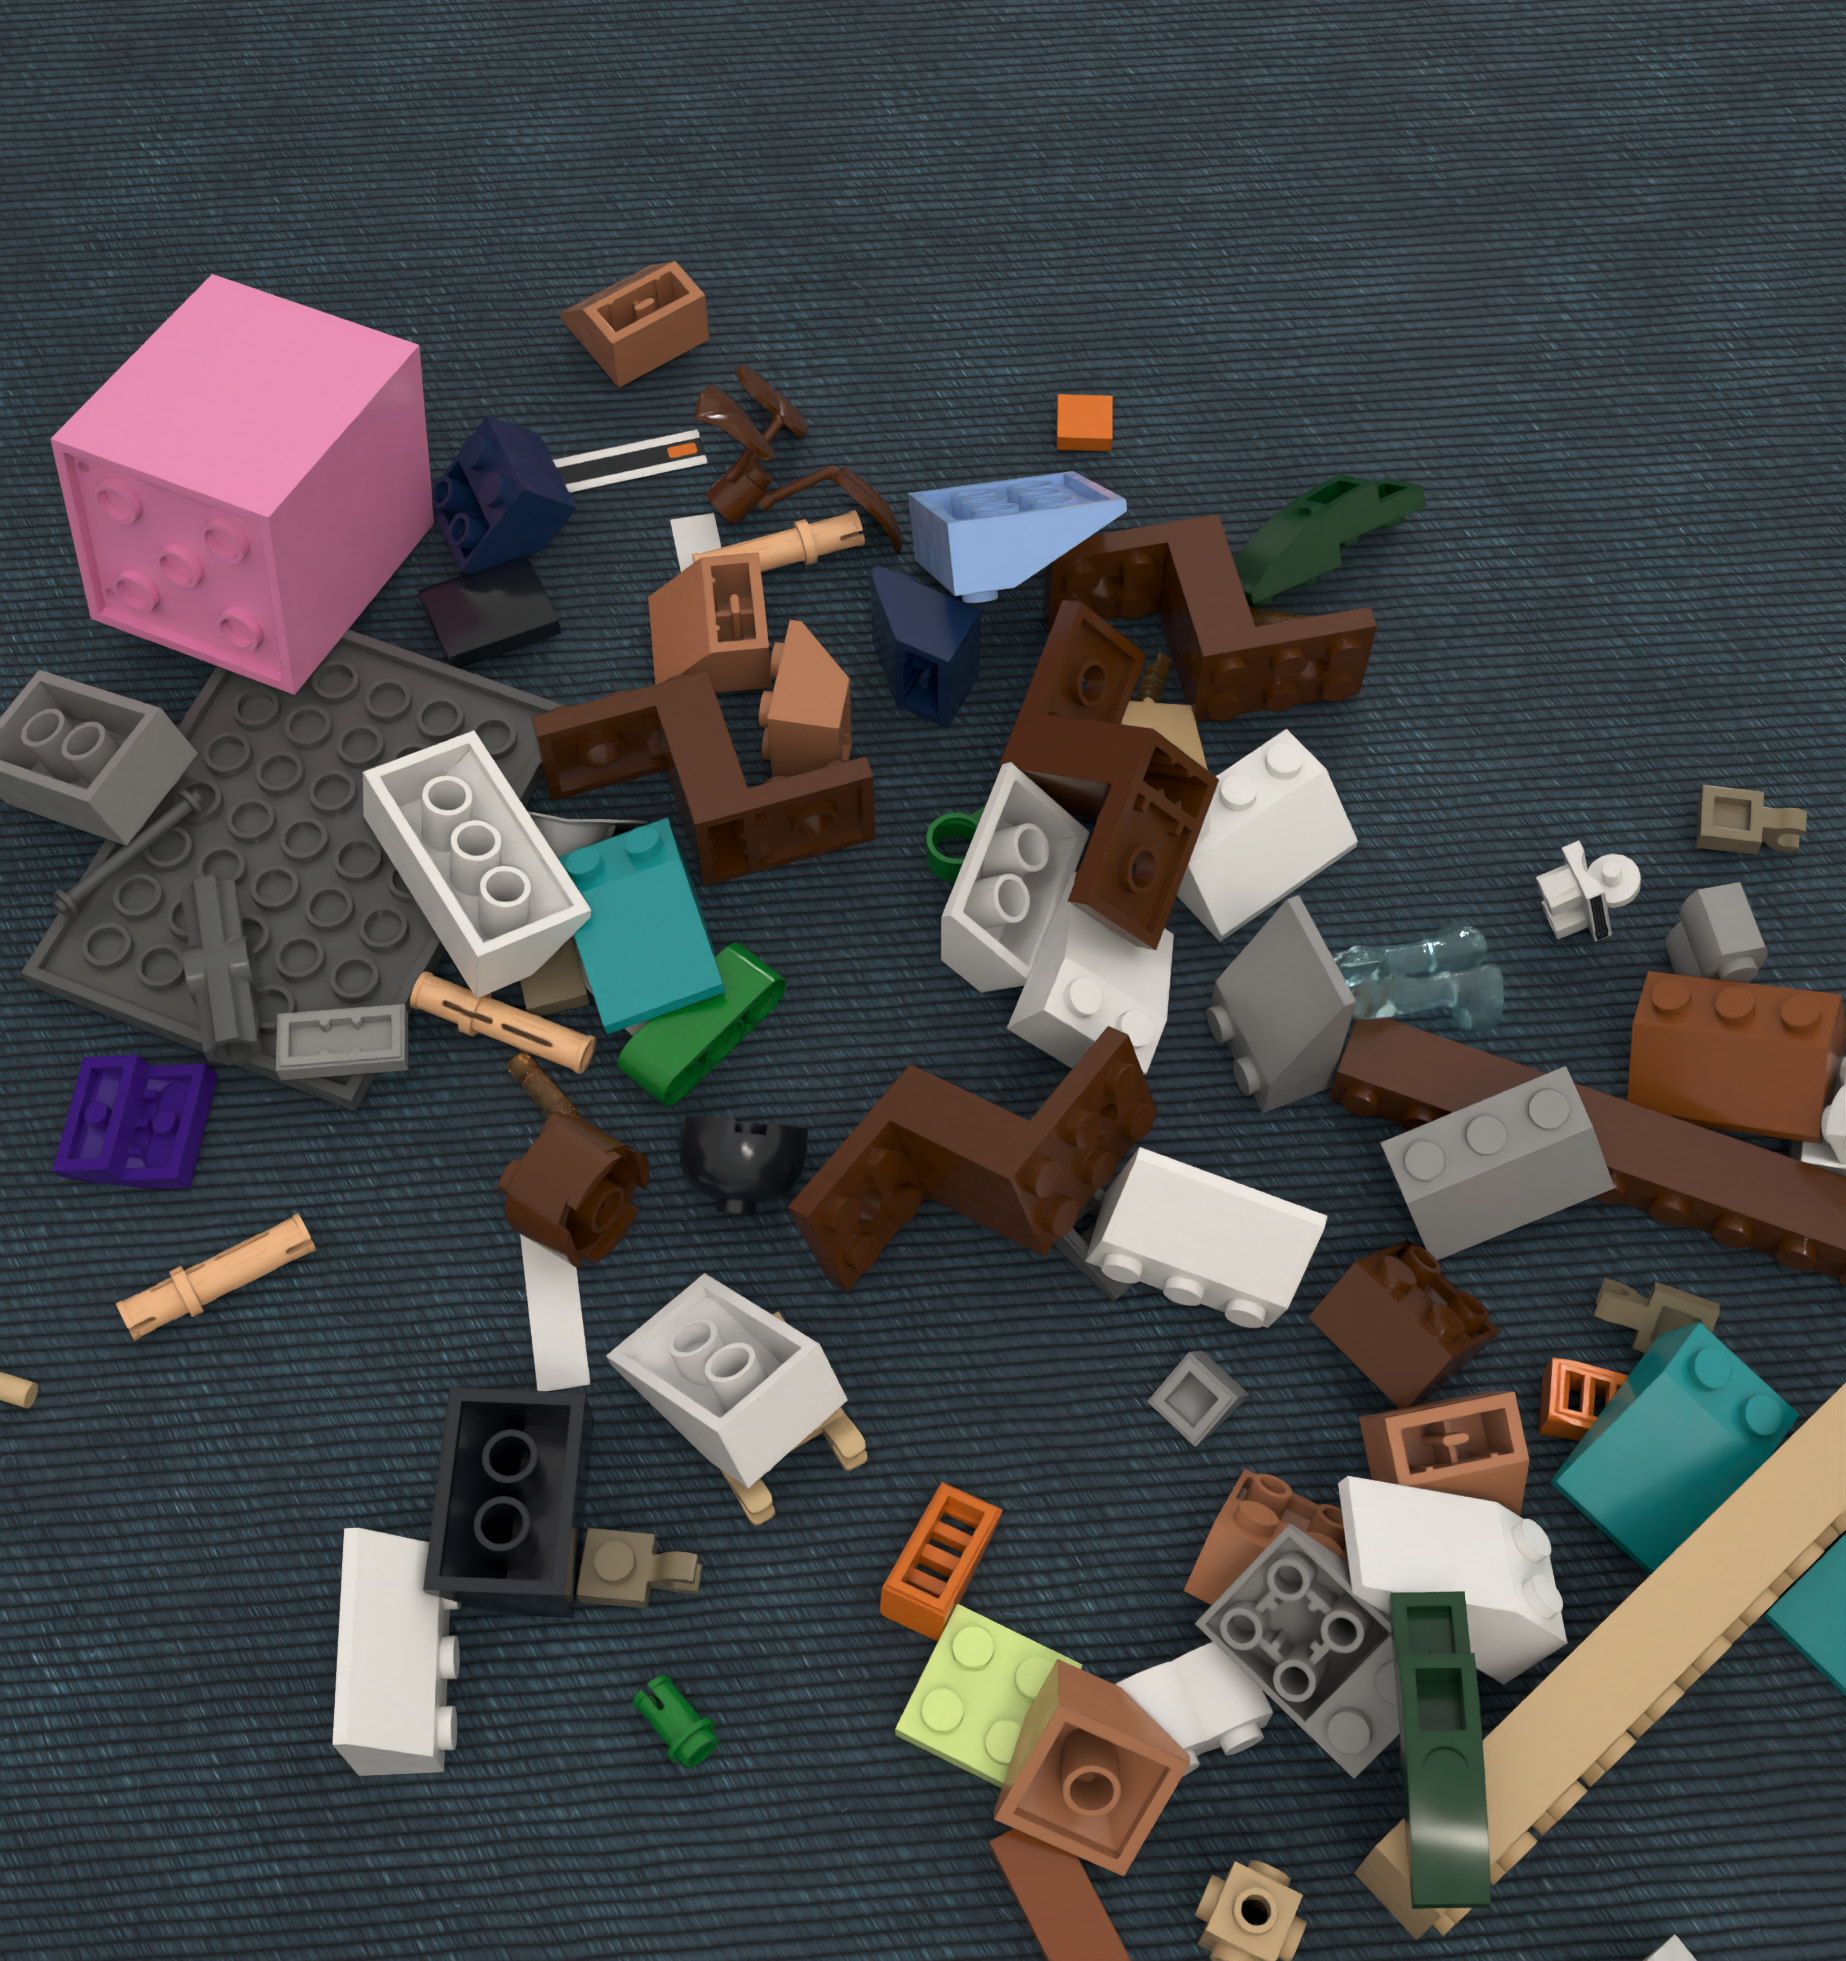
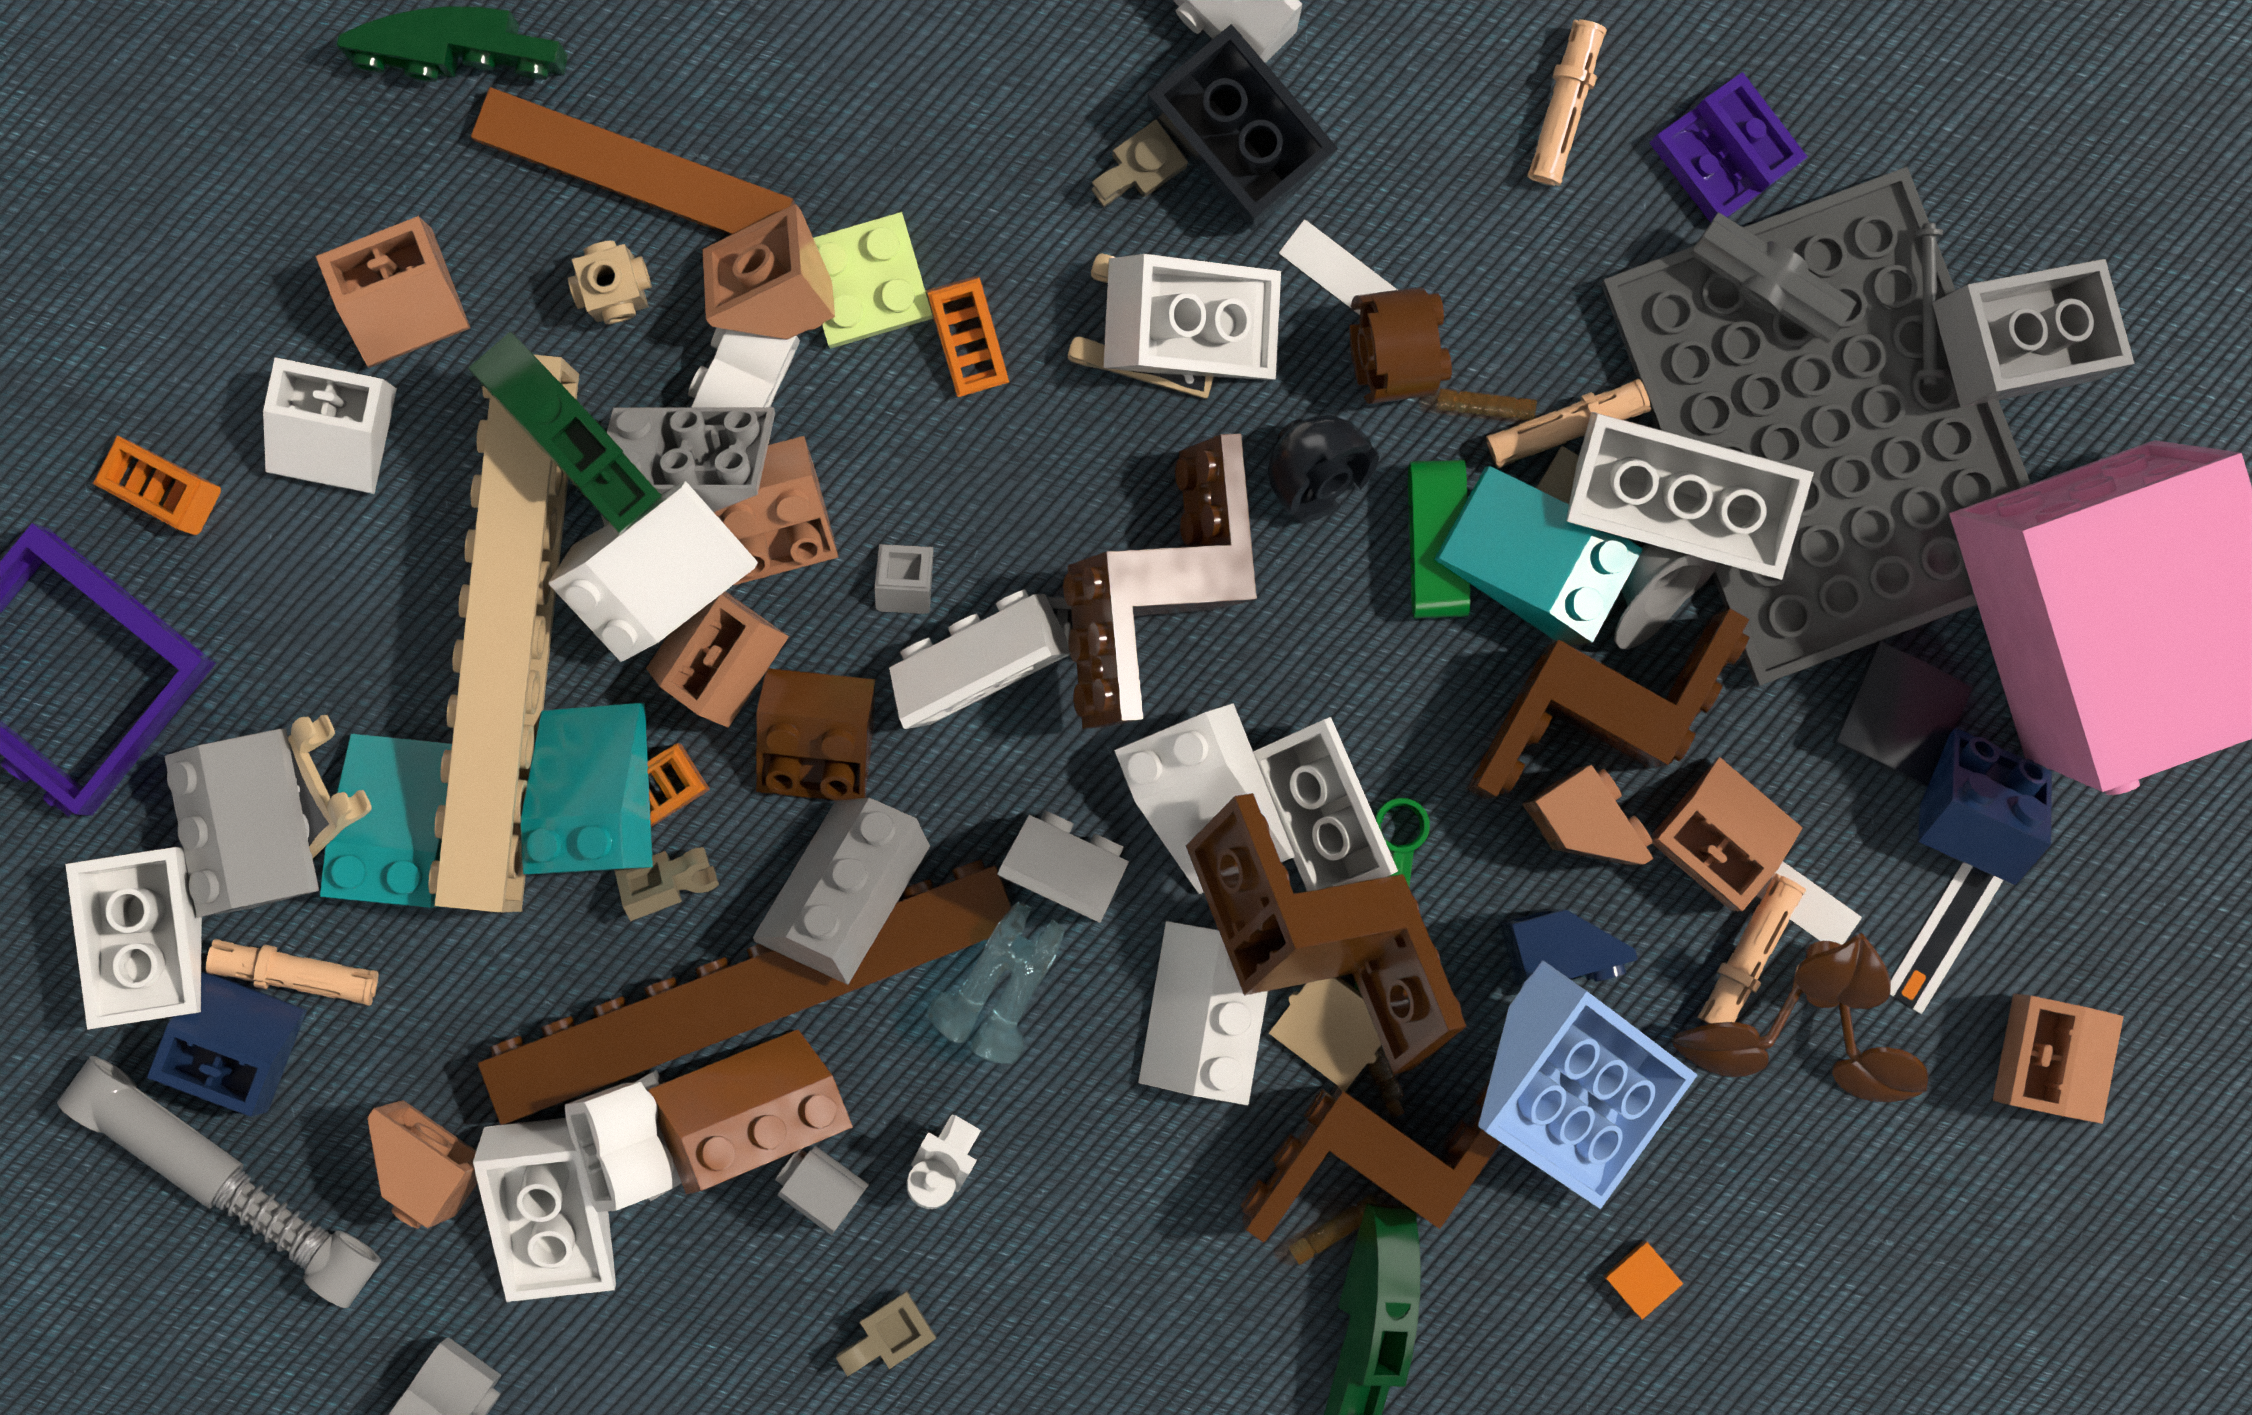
camera: 135 degrees right, 25 degrees up
(342, 1042) = (1643, 304): light grey plate -> none
(677, 1723) = (1029, 103): green pin -> none

